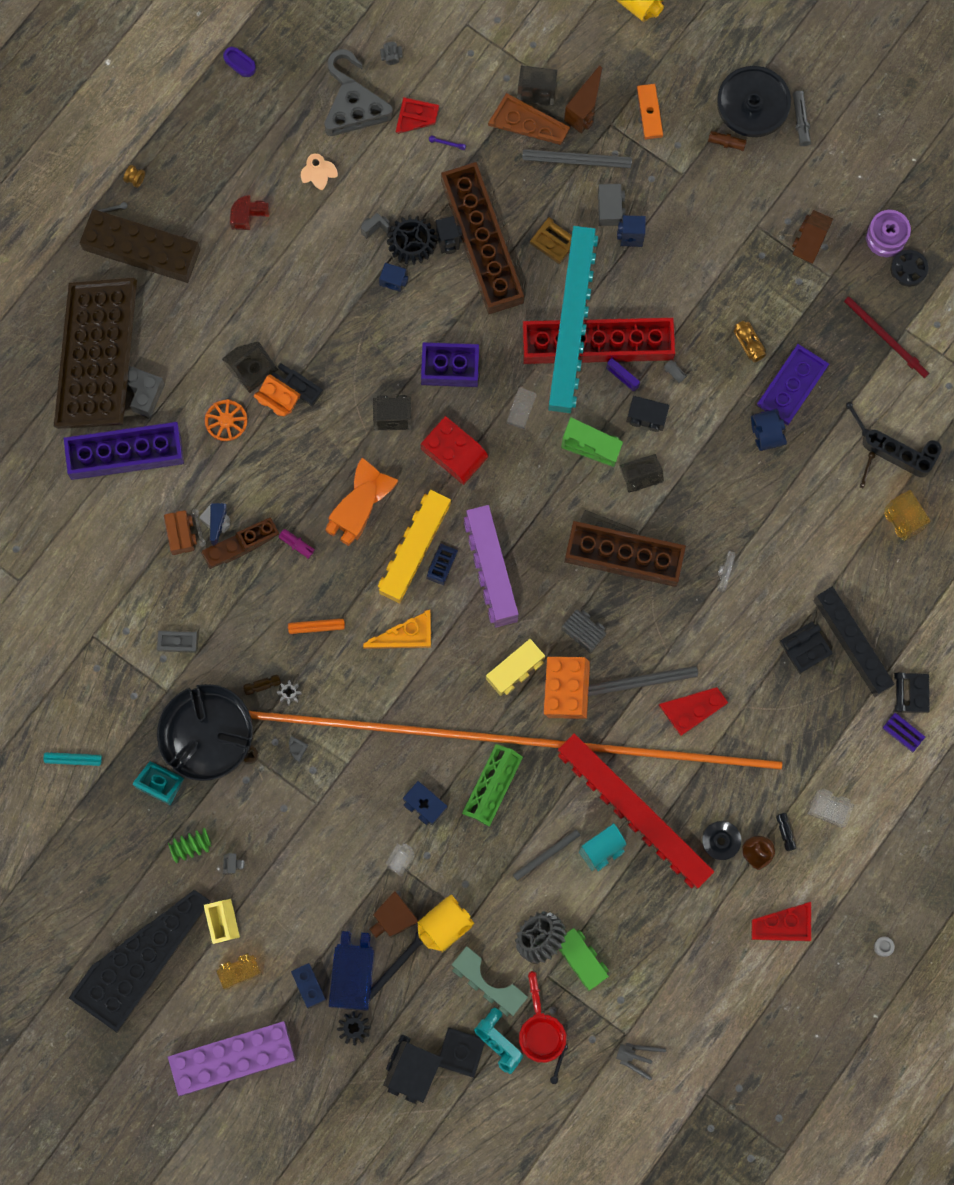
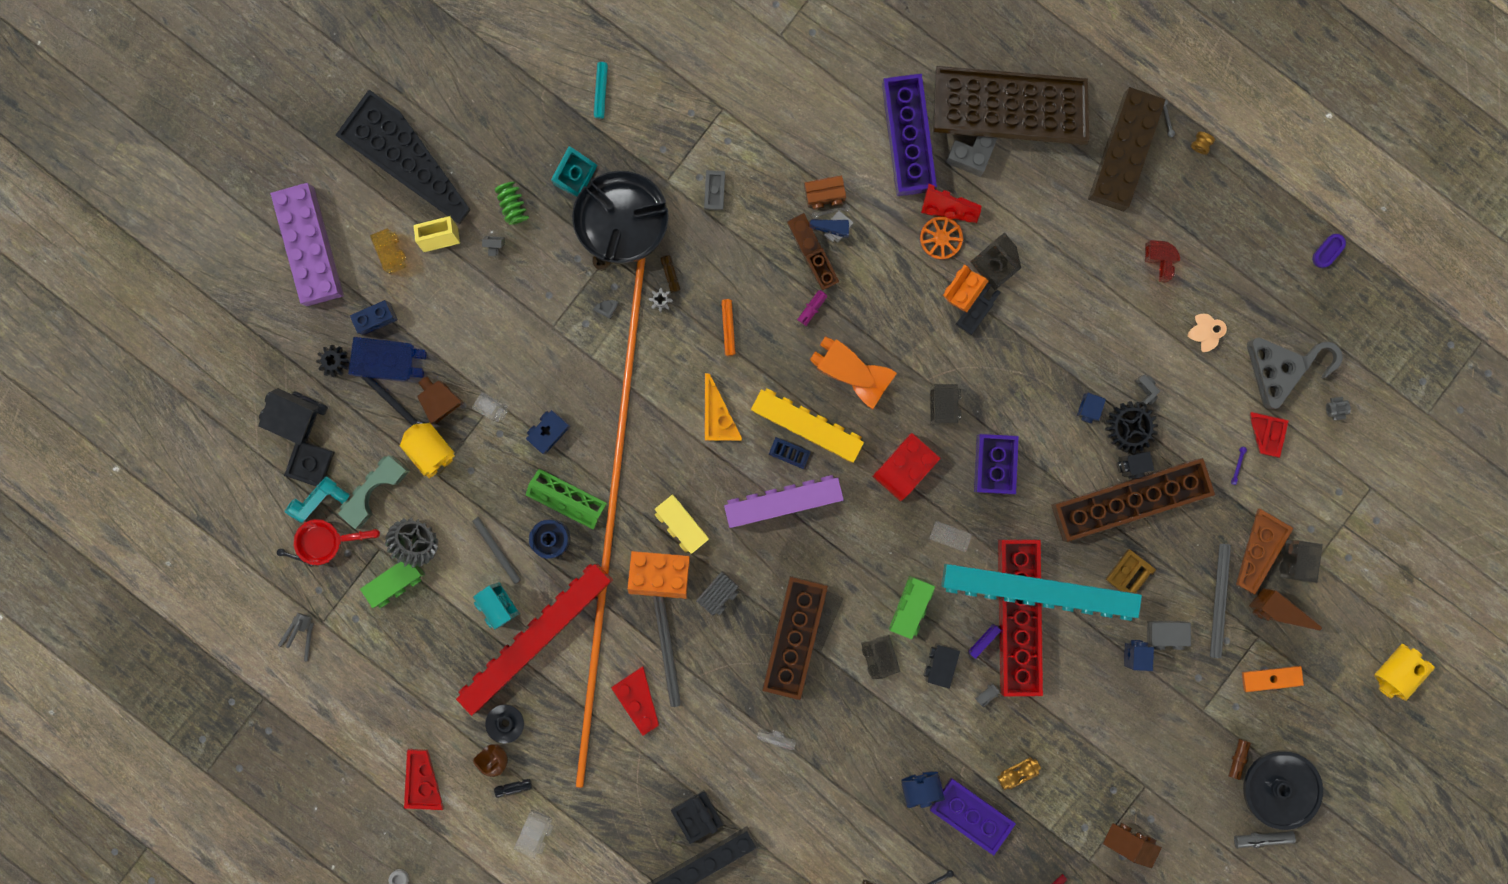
camera: 95 degrees right, 10 degrees up
(194, 415) = (944, 205): none -> red wing
(525, 806) = (538, 536): none -> dark blue brick

